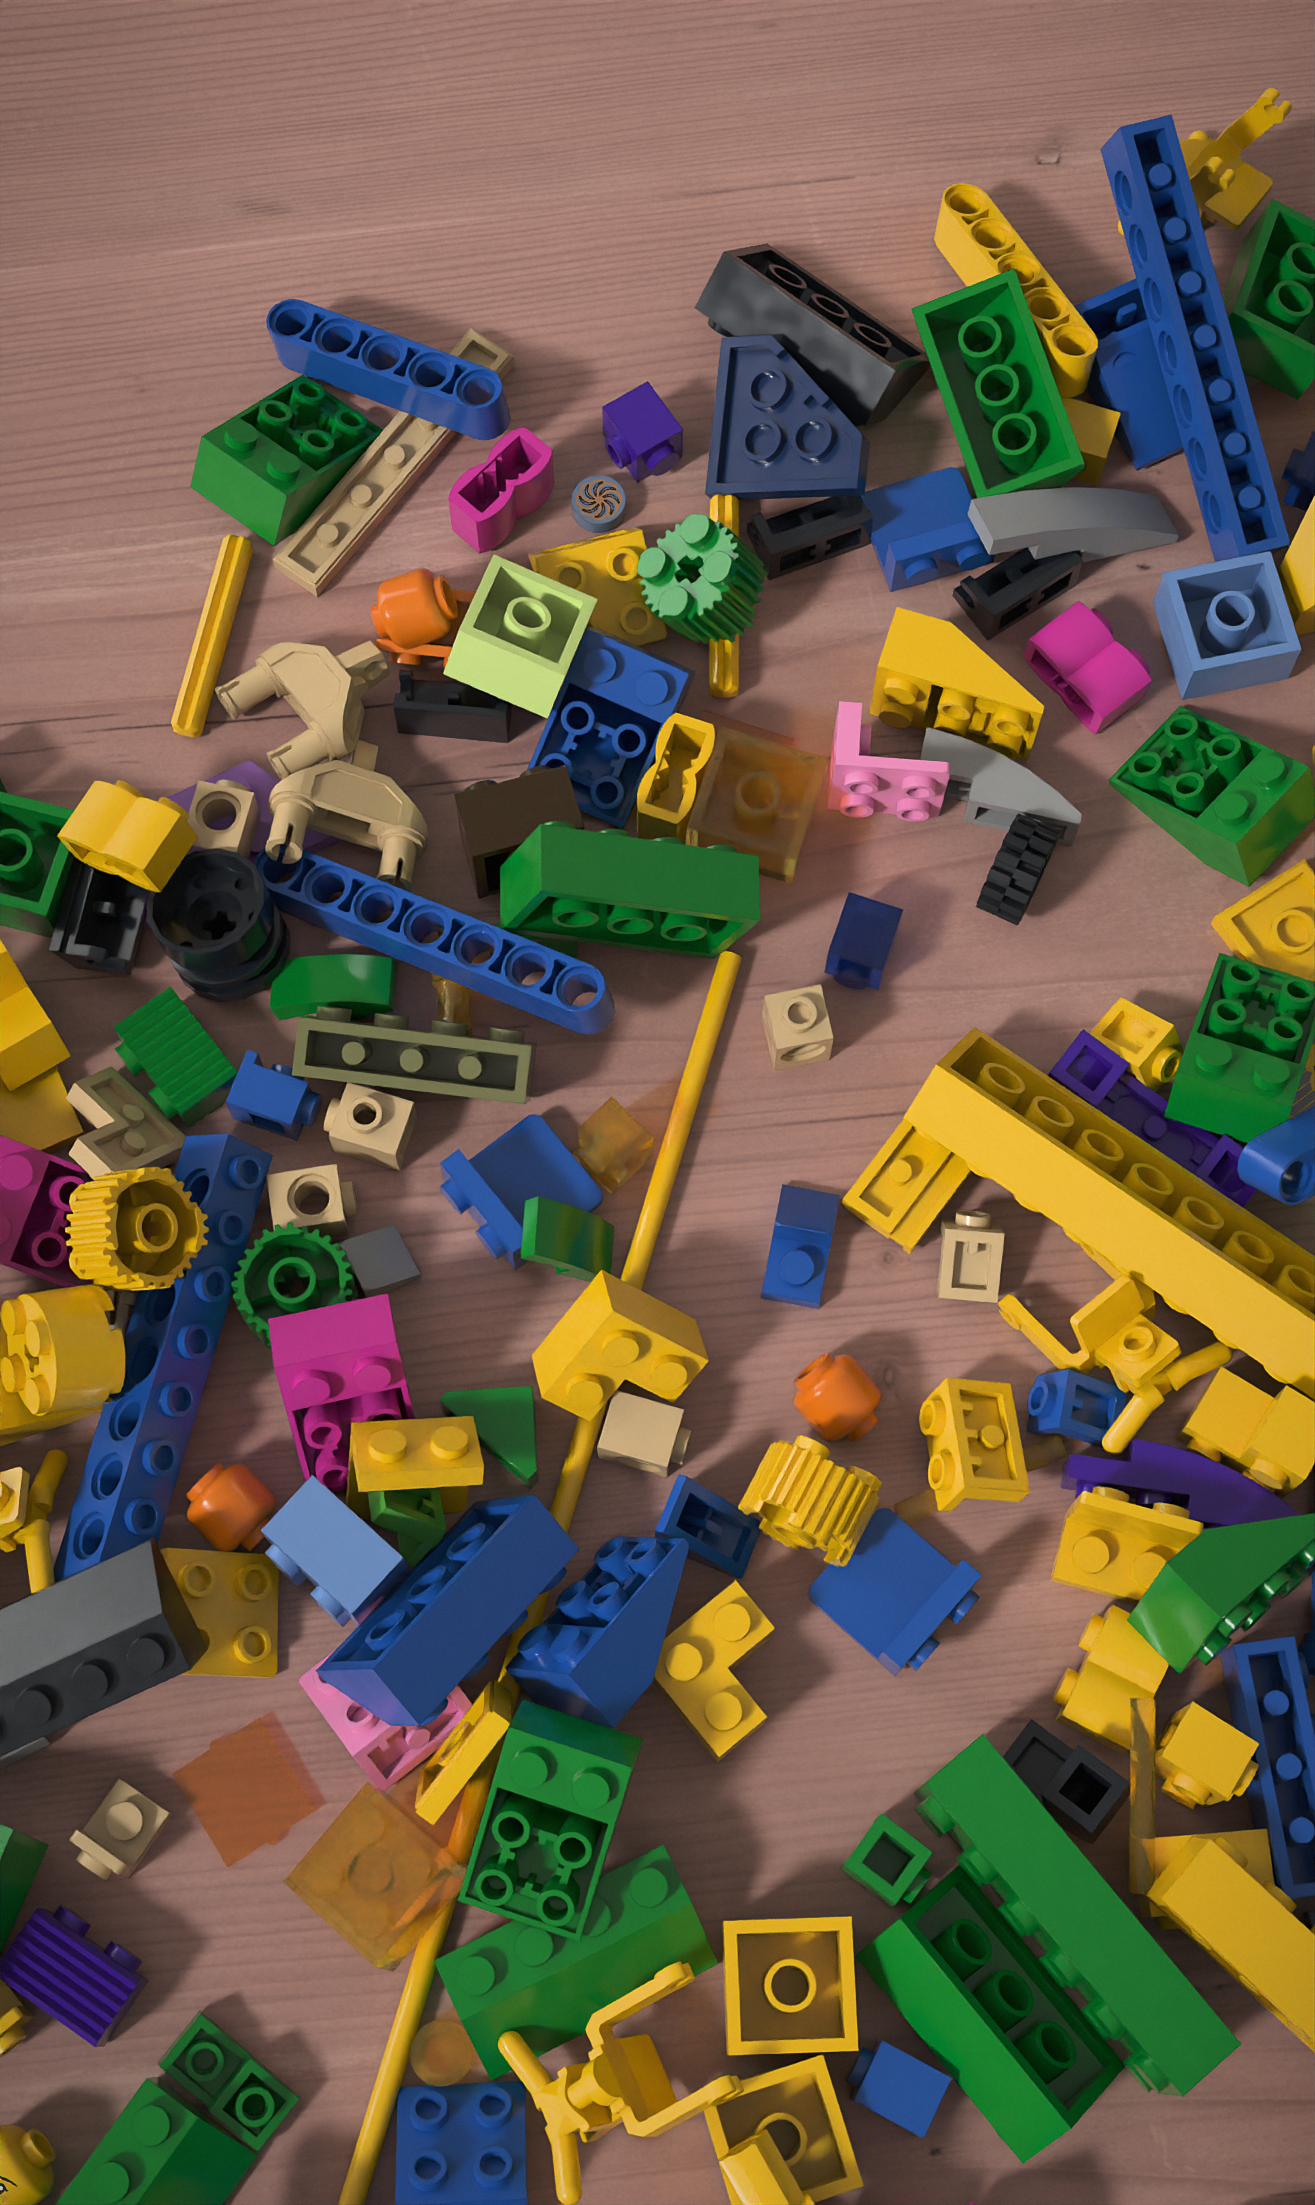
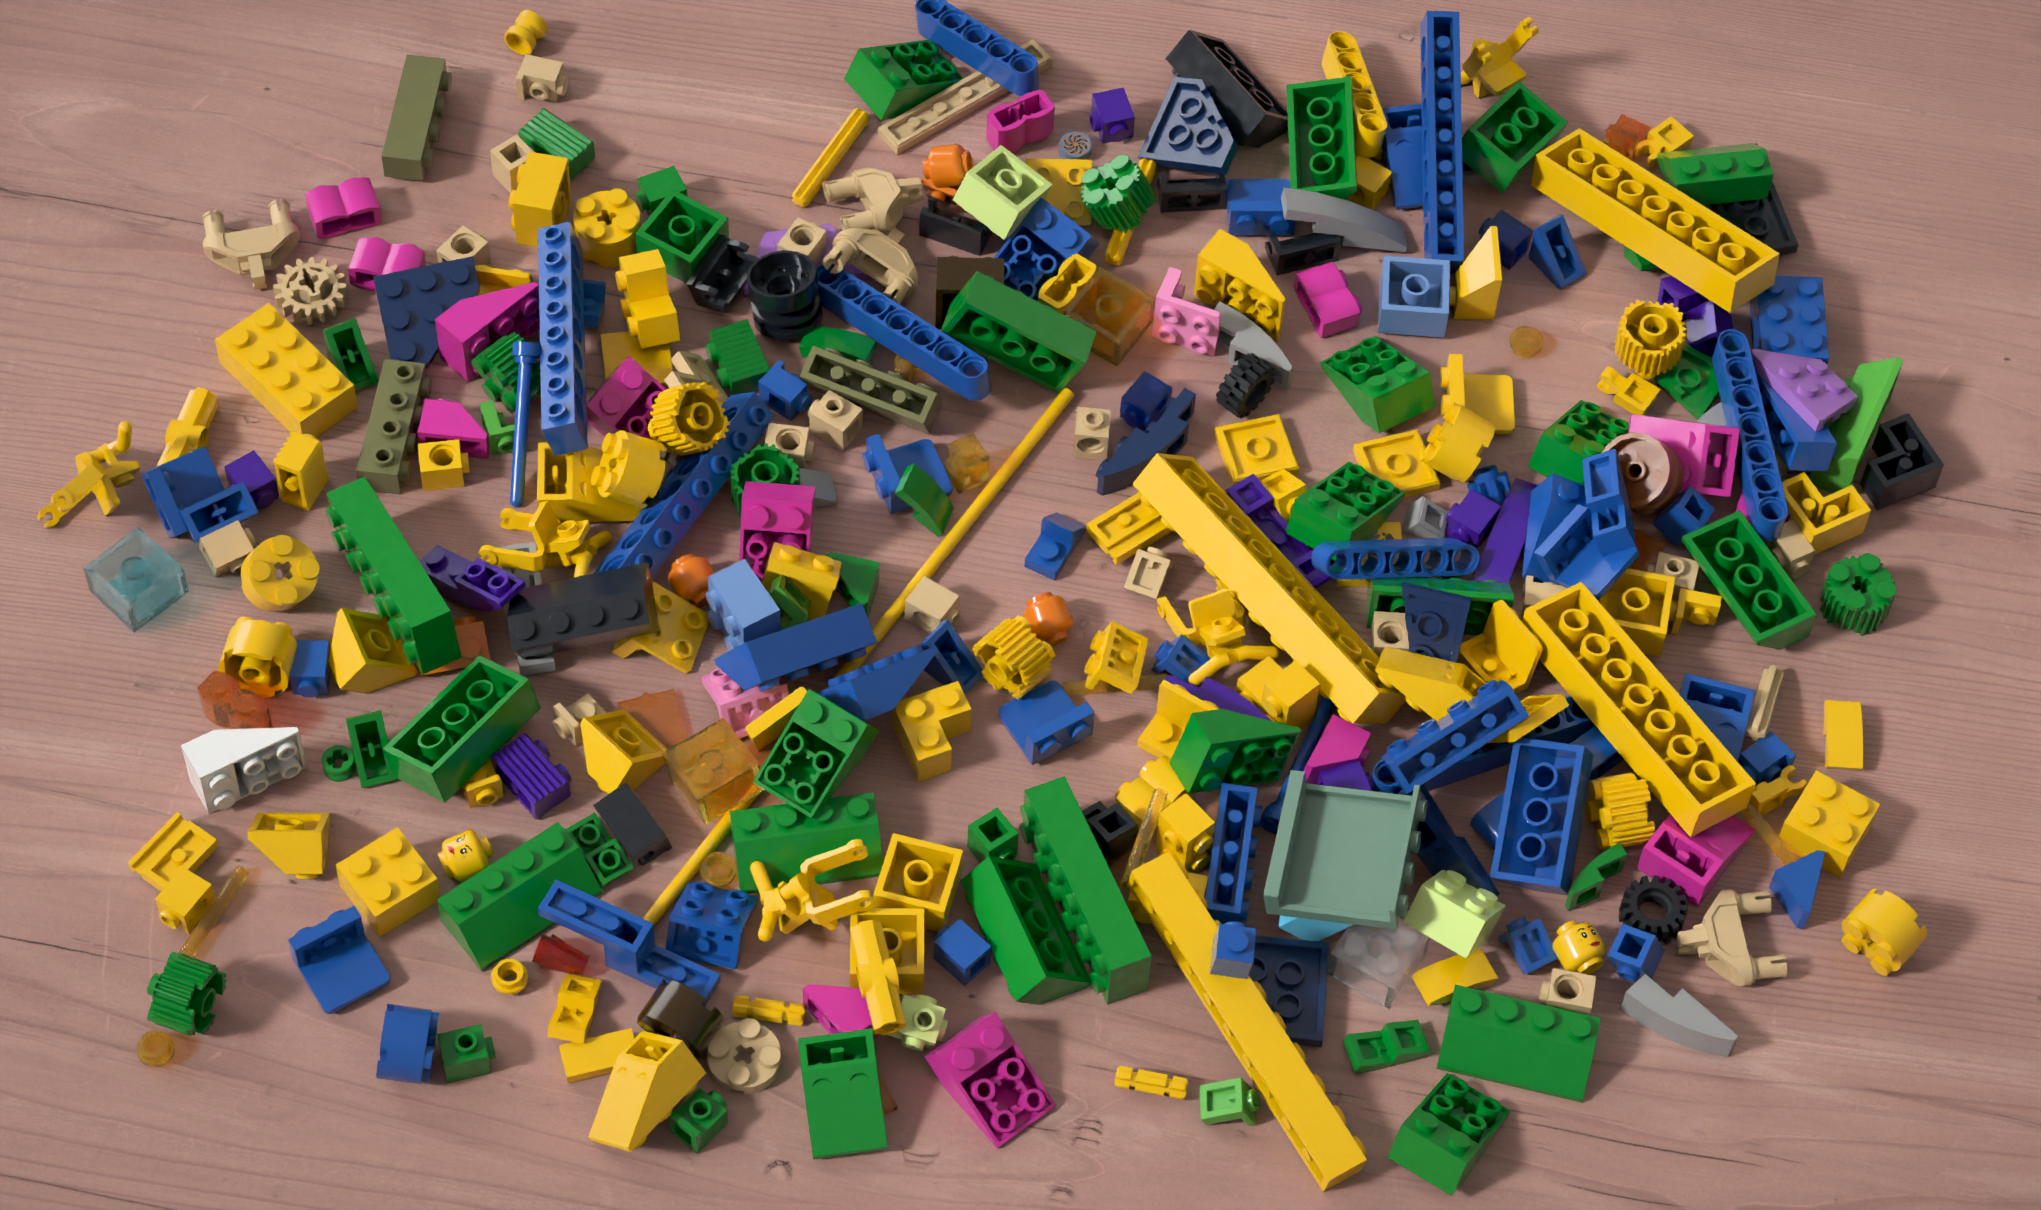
camera: 15 degrees right, 15 degrees down
(129, 834) = (750, 231): yellow brick -> none
(208, 1879) = (619, 750): none -> yellow slope
(272, 2018) = (632, 825): none -> black hinge
(614, 1337) = (936, 547): yellow brick -> none
(894, 1032) = (1138, 449): none -> dark blue slope
(1062, 973) = (1255, 448): none -> yellow tile

